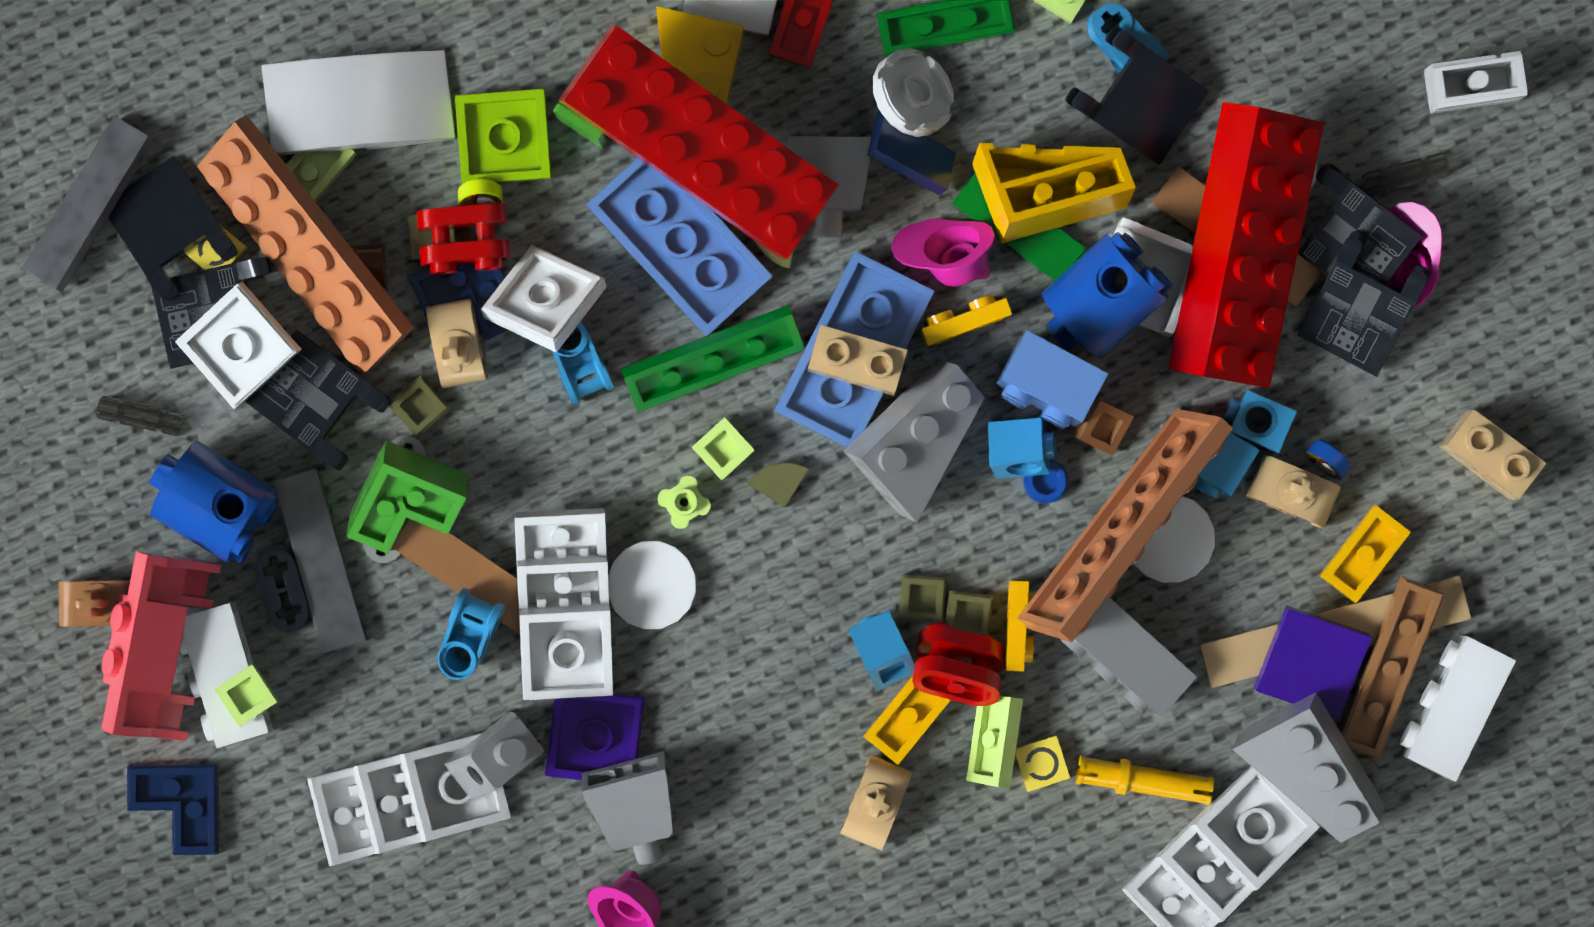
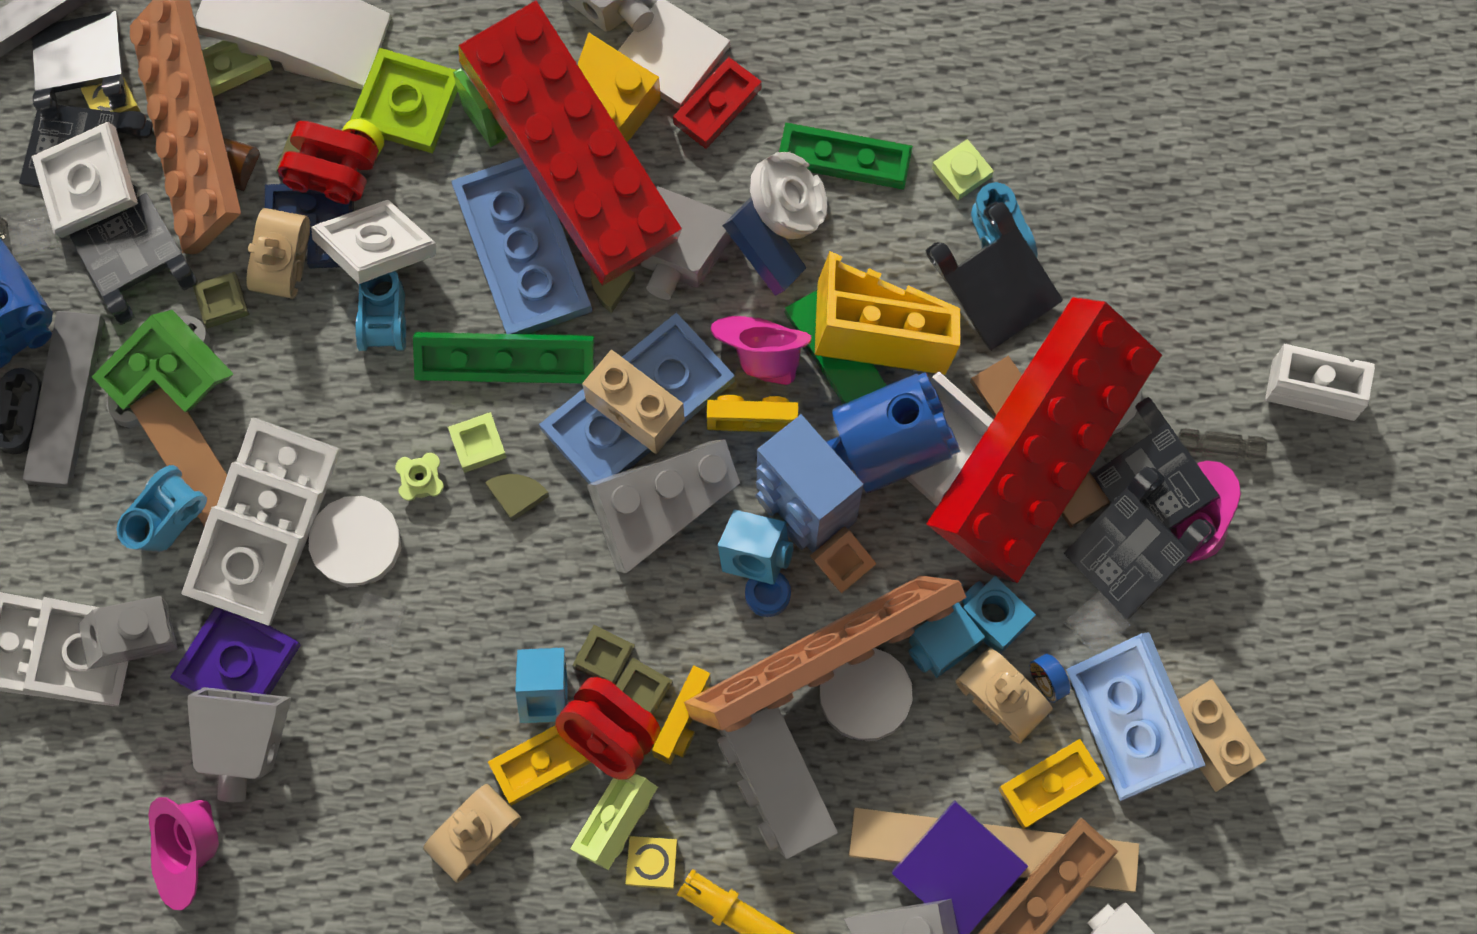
camera: 20 degrees right, 15 degrees down
(1417, 467) = (1135, 716): none -> light blue tile

